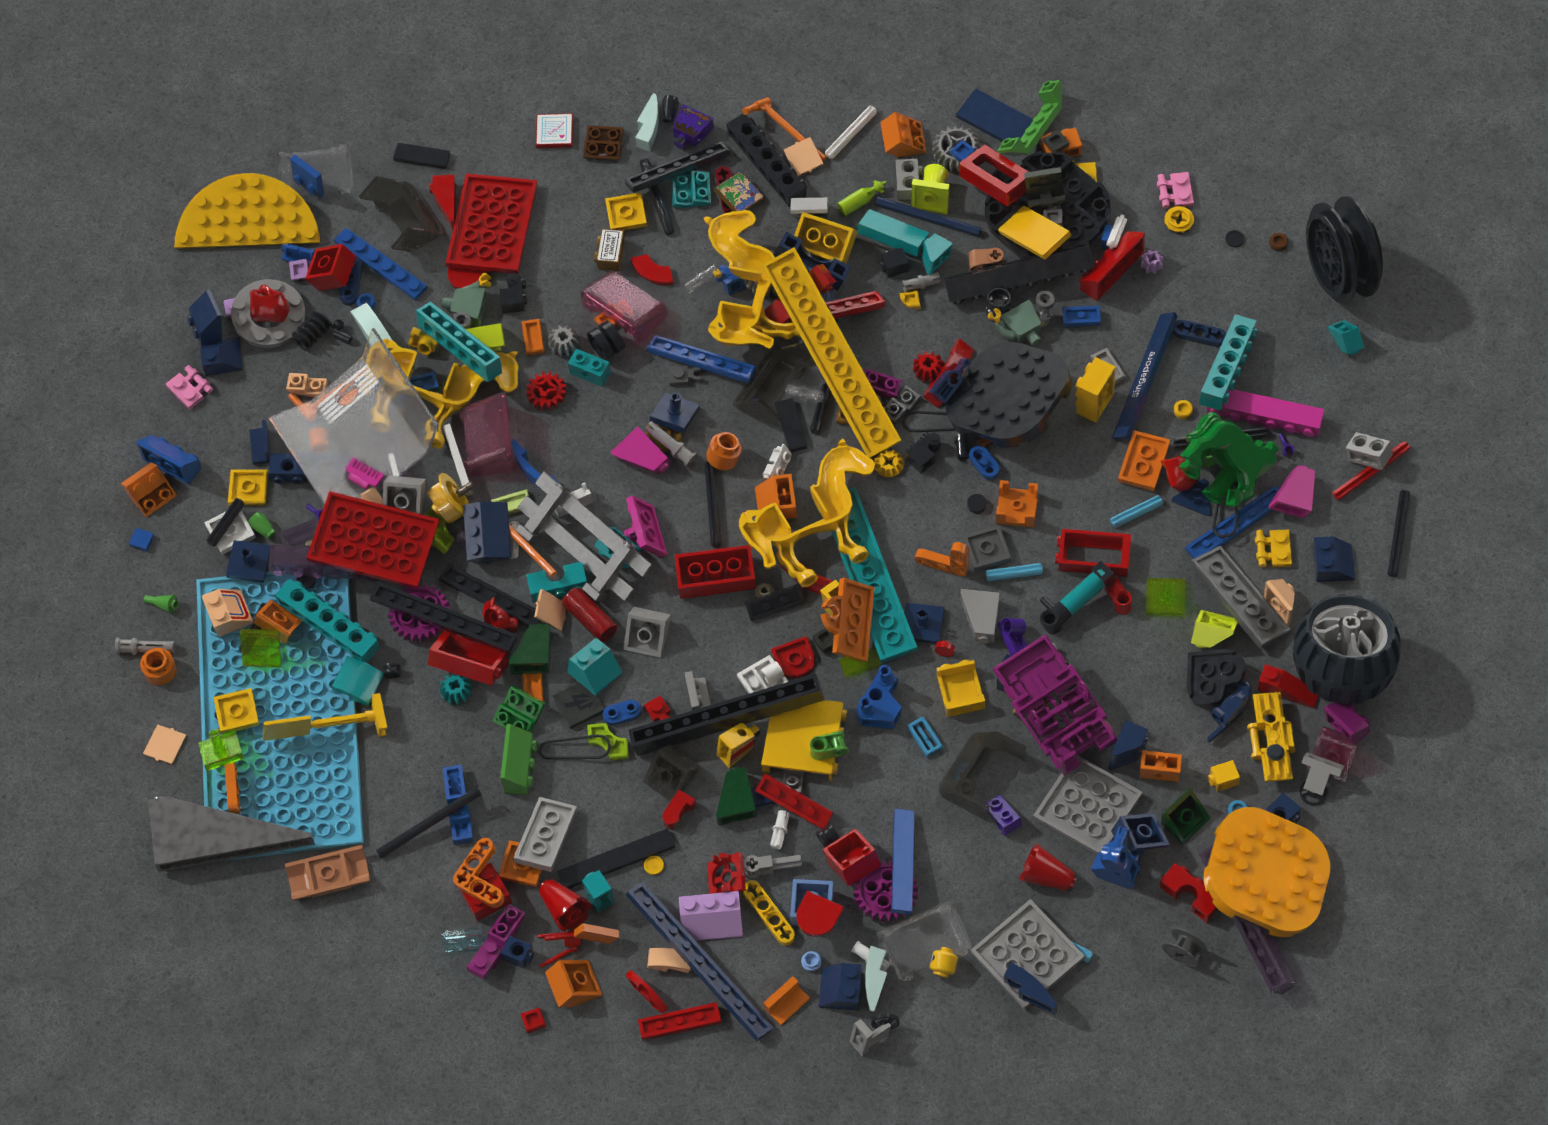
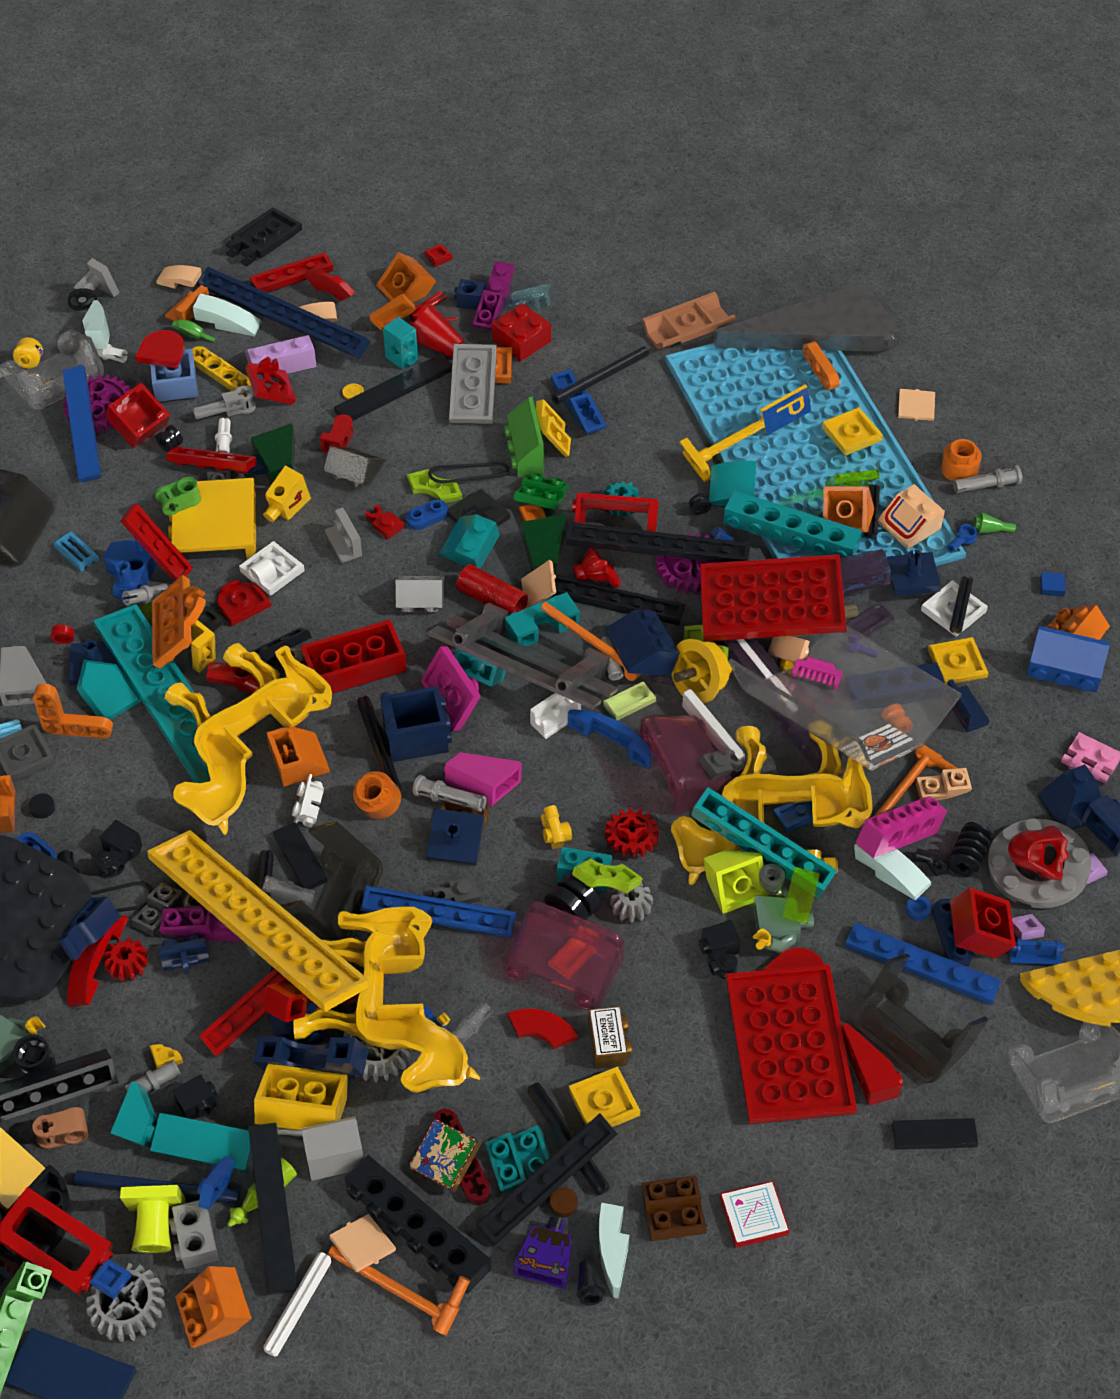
camera: 160 degrees right, 10 degrees down
(189, 595) = (964, 535): none -> blue plate
(220, 749) = (849, 389): clear neon green tile -> none
(262, 525) = (918, 619): bright green cone -> none
(307, 176) = (1078, 1042): blue plate -> none
(353, 341) = (901, 826): none -> dark pink brick
(386, 633) = (719, 533): none -> blue tile
(404, 493) = (759, 654): light grey slope -> none
(447, 300) = (801, 895): none -> clear neon green tile
(467, 415) = (719, 765): none -> dark grey plate
(473, 879) = (532, 318): orange beam -> none
(491, 764) = (553, 427): none -> yellow slope
(533, 337) = (676, 905): orange tile -> none
(584, 340) = (598, 874): none -> lime tile
(599, 404) = (555, 832): none -> yellow plate
(669, 156) = (563, 1202): none -> reddish brown tile
(687, 496) = (415, 723): none -> dark blue container
(696, 1083) = (262, 235): none -> black tile
(726, 714) = (298, 505): black brick -> none
(752, 975) = (225, 315): none -> light aqua slope
(787, 966) = (191, 330): none -> bright green hand
(788, 1036) = (179, 274): none -> light nougat slope
(841, 986) = (131, 320): dark blue slope -> none
(855, 179) = (272, 1209): none -> black tile
(855, 690) = (155, 542): none -> red plate
(870, 669) = (143, 594): none -> light grey pin
(886, 199) = (217, 1181): none -> blue plate
(889, 470) = (150, 833): yellow gear -> none
(890, 360) = (183, 954): none -> dark blue hips
(915, 589) = (106, 689): none -> teal tile
(960, 688) = (38, 598): yellow panel -> none

